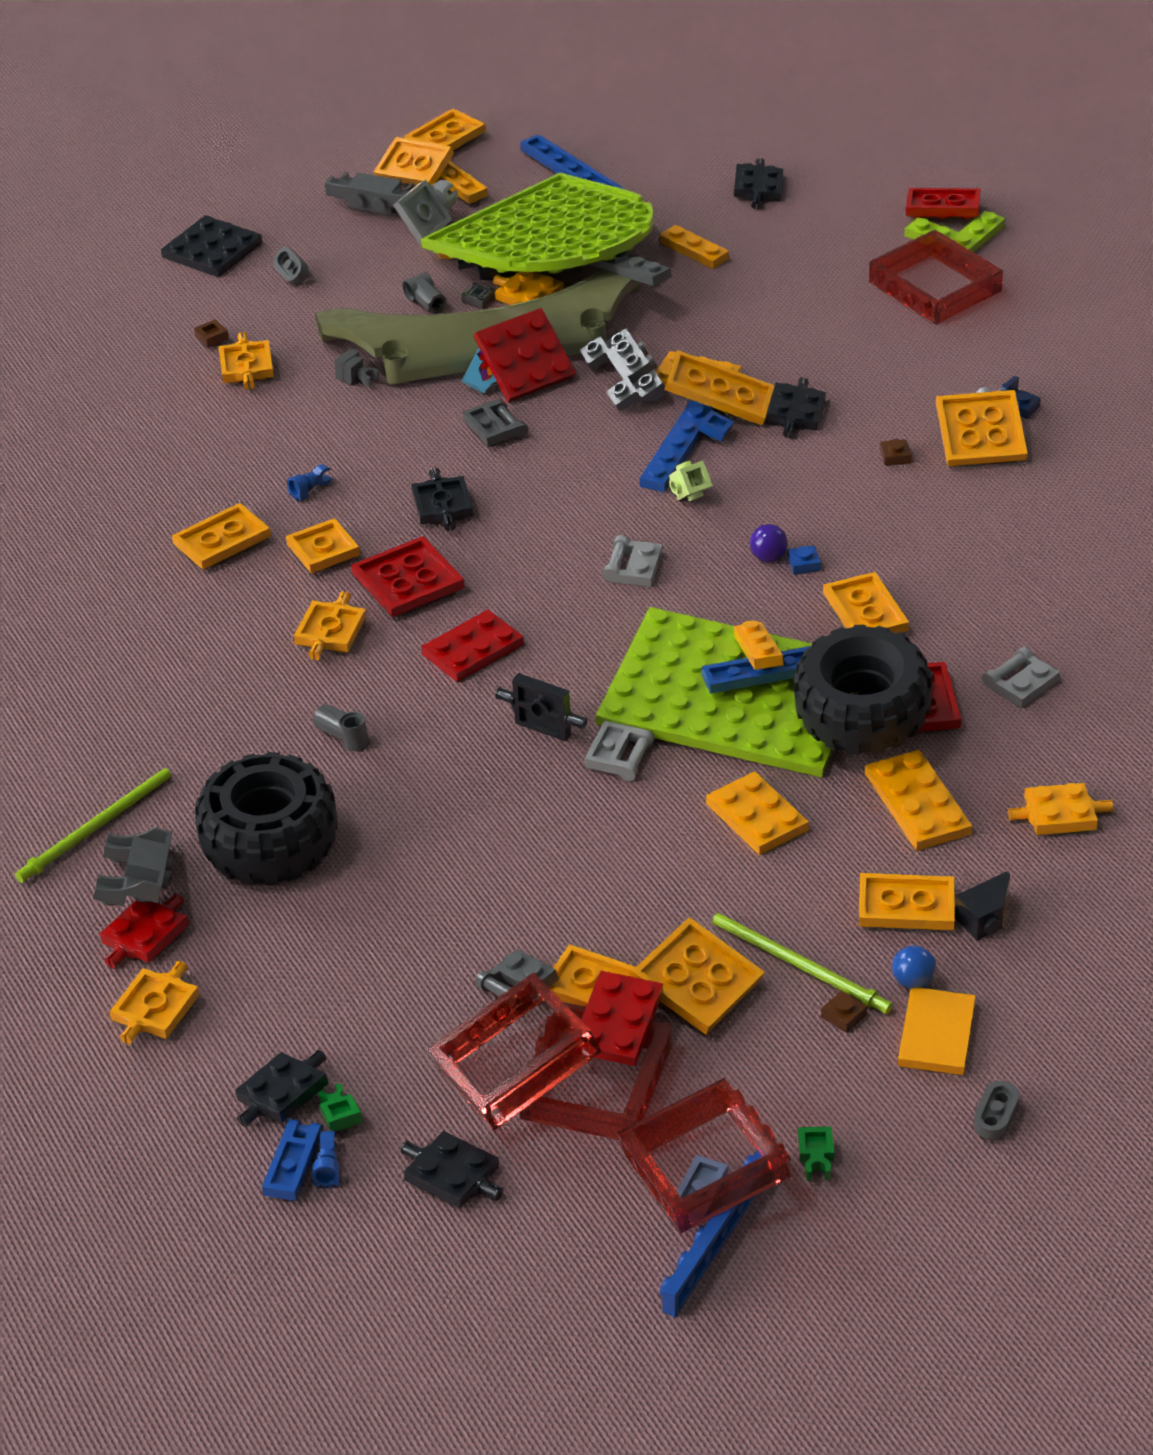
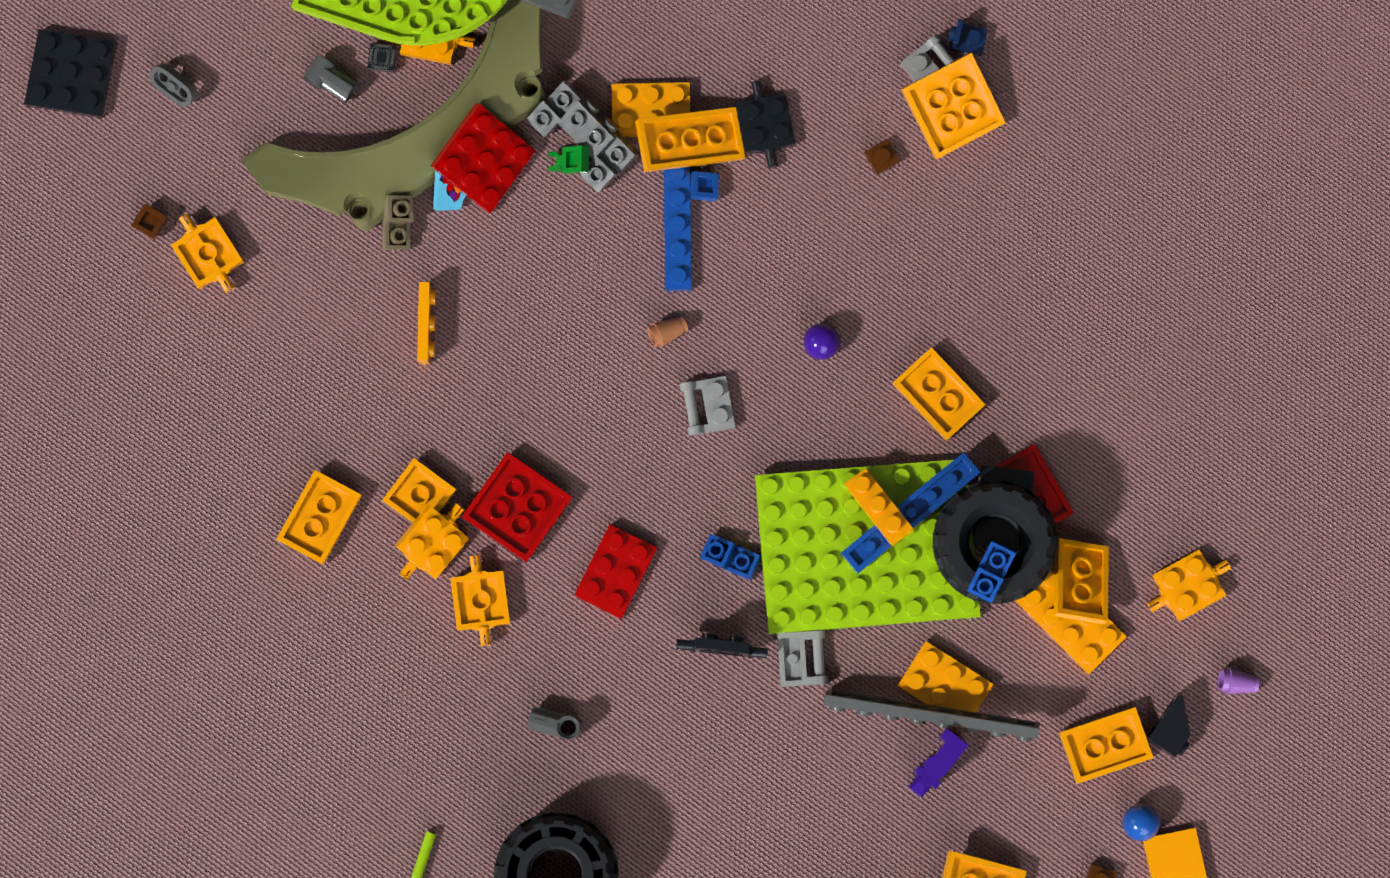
camera: 25 degrees left, 40 degrees up
(299, 485) = (355, 420): blue piece -> none
(311, 572) = (431, 542): none -> light orange plate
(350, 369) = (317, 227): dark grey piece -> none
(404, 443) = (426, 323): none -> light orange plate
(423, 378) = (396, 222): none -> dark tan slope
(442, 500) = (497, 389): black plate -> none
(488, 426) = (488, 263): dark grey plate -> none
(589, 664) = (730, 557): none -> blue slope
(605, 377) = (571, 160): none -> green plate
(624, 503) = (666, 331): none -> nougat cone
(690, 480) = (717, 284): yellowish green brick -> none
(714, 851) = (938, 764): none -> dark purple hips
(733, 813) = (942, 716): none -> dark grey plate
(803, 559) = (857, 344): blue plate -> none
(846, 681) = (991, 571): none -> blue slope
(868, 997) = (1113, 859): lime bar -> none
(942, 762) = (1081, 581): none -> light orange plate
(1026, 684) = (1110, 434): light grey plate -> none
(1079, 893) = (1235, 681): none -> medium lavender cone

